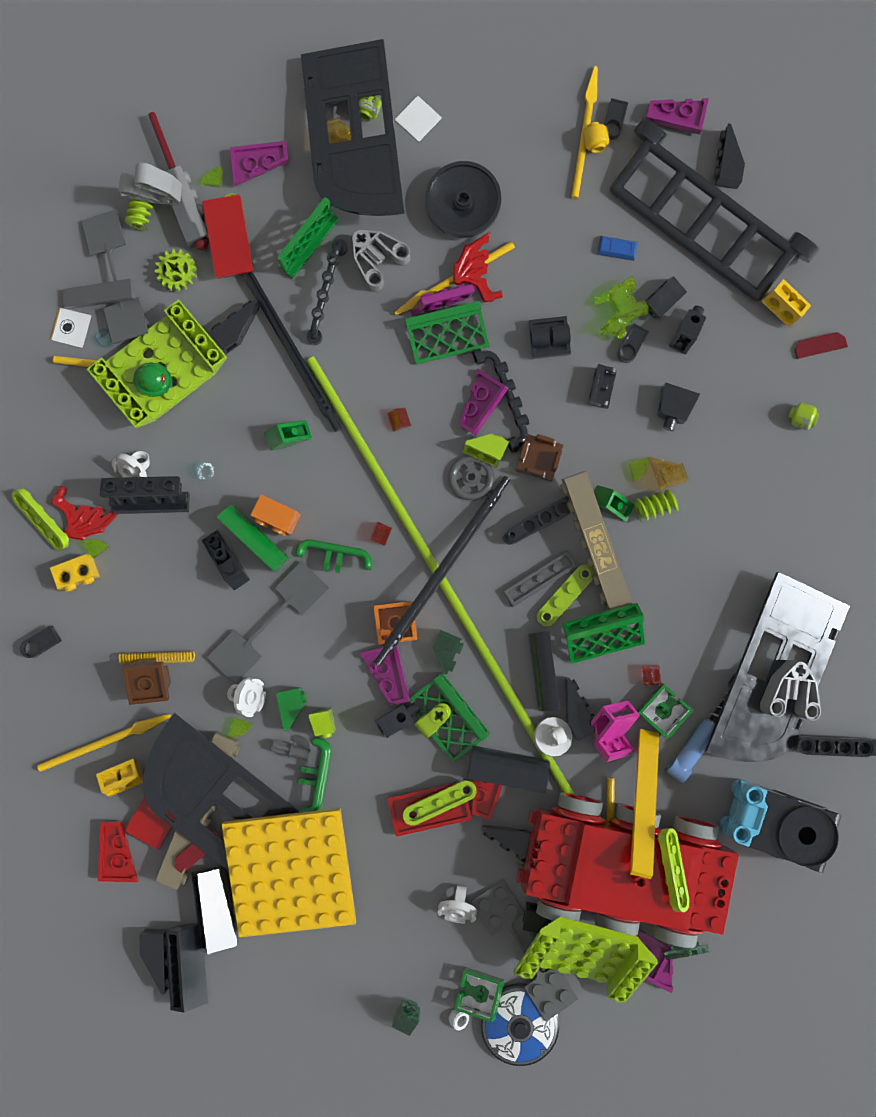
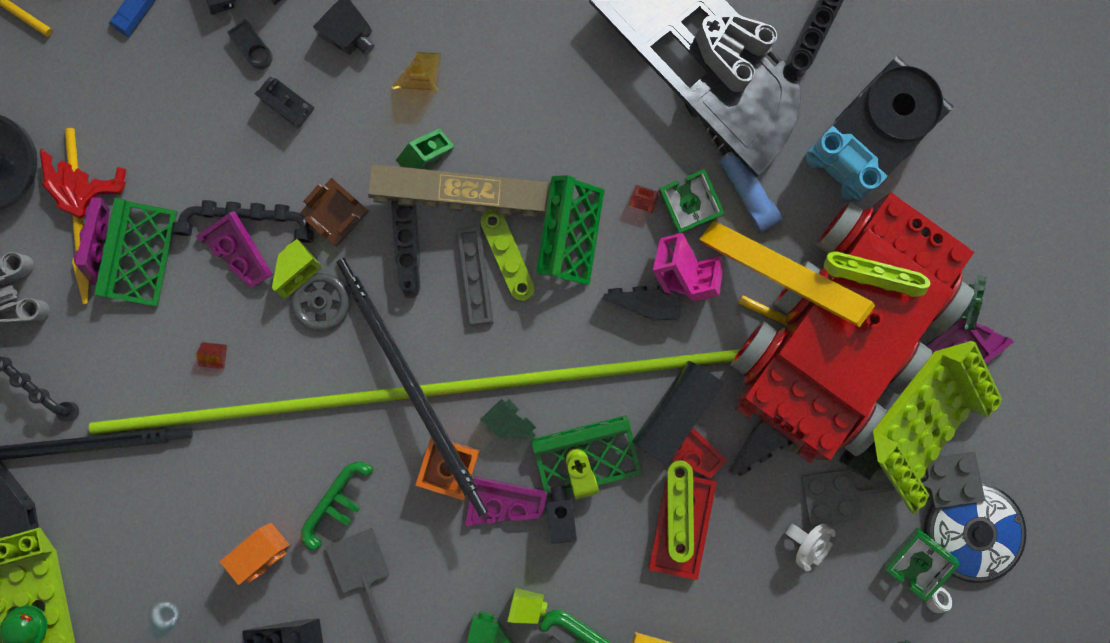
camera: 70 degrees left, 0 degrees up
(253, 538) = (270, 592): green brick -> none
(287, 434) = (167, 496): green slope -> none
(380, 533) = (336, 438): clear red slope -> none
(543, 671) = (582, 320): black brick -> none
(550, 337) = (198, 135): black plate -> none
(552, 736) = (663, 344): white tile -> none
(624, 306) = (203, 34): clear neon green animal -> none
(639, 468) = (399, 104): clear neon green tile -> none
(656, 504) = (449, 103): lime piece -> none

